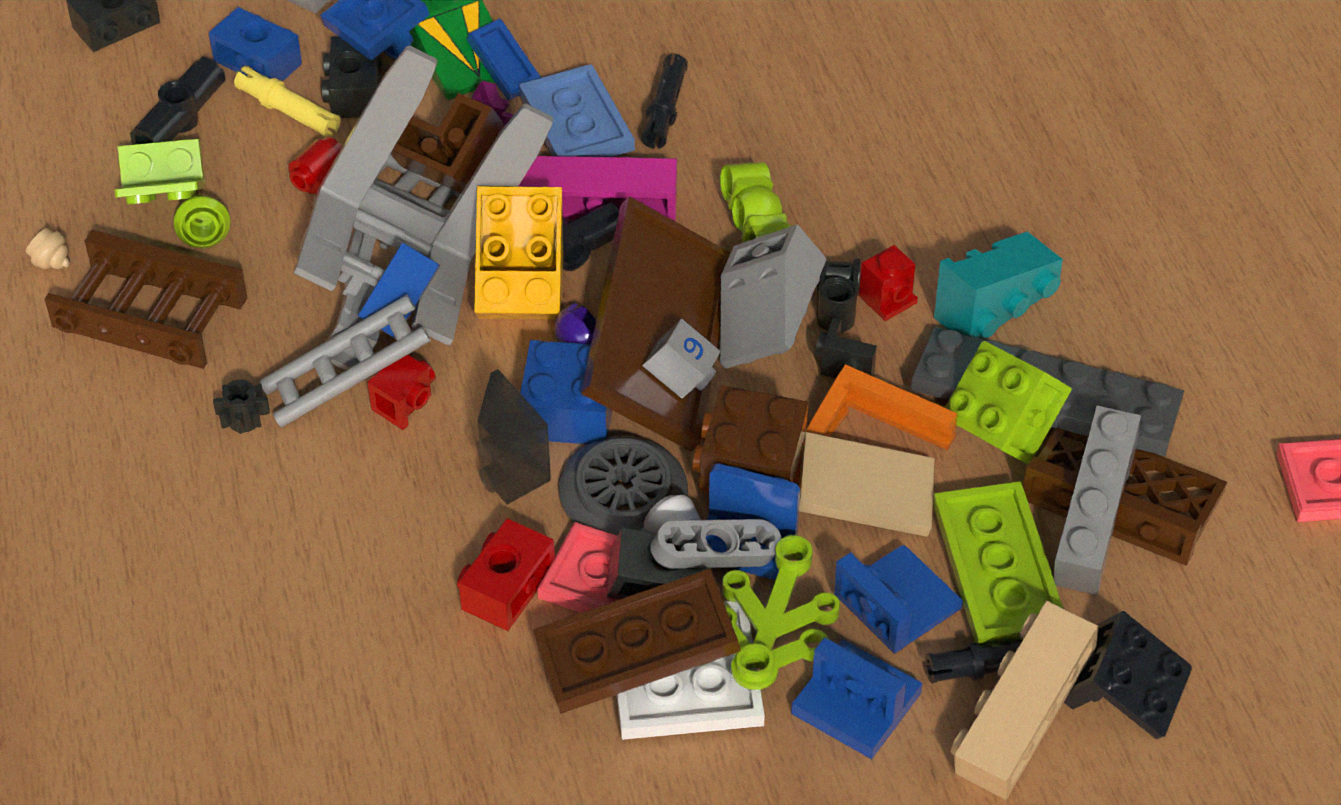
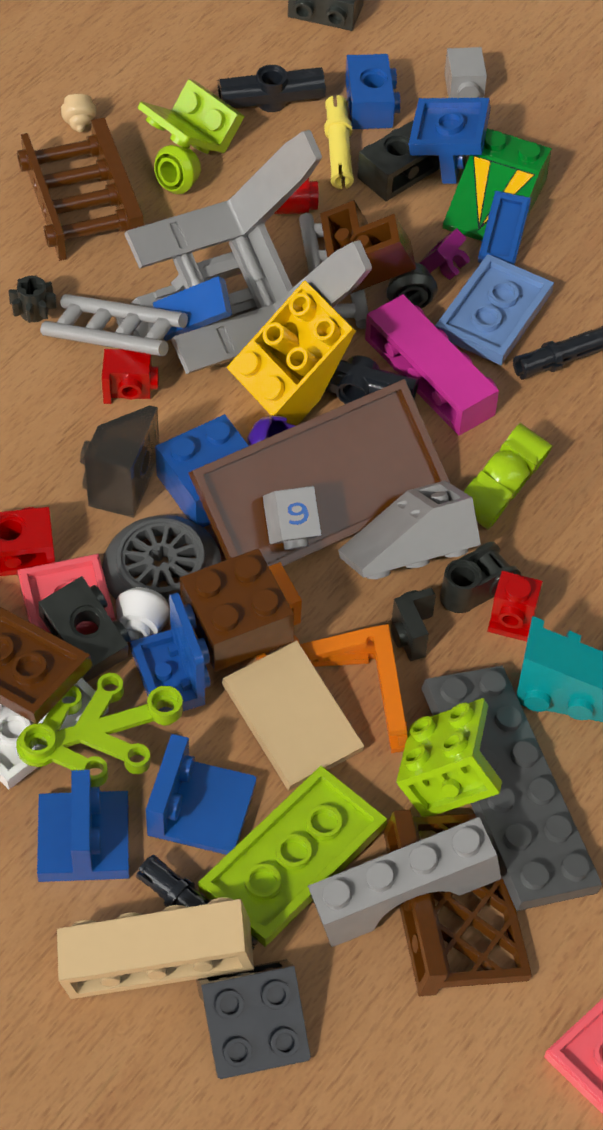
camera: 50 degrees right, 5 degrees up
(702, 556) = (126, 628): light grey beam -> none

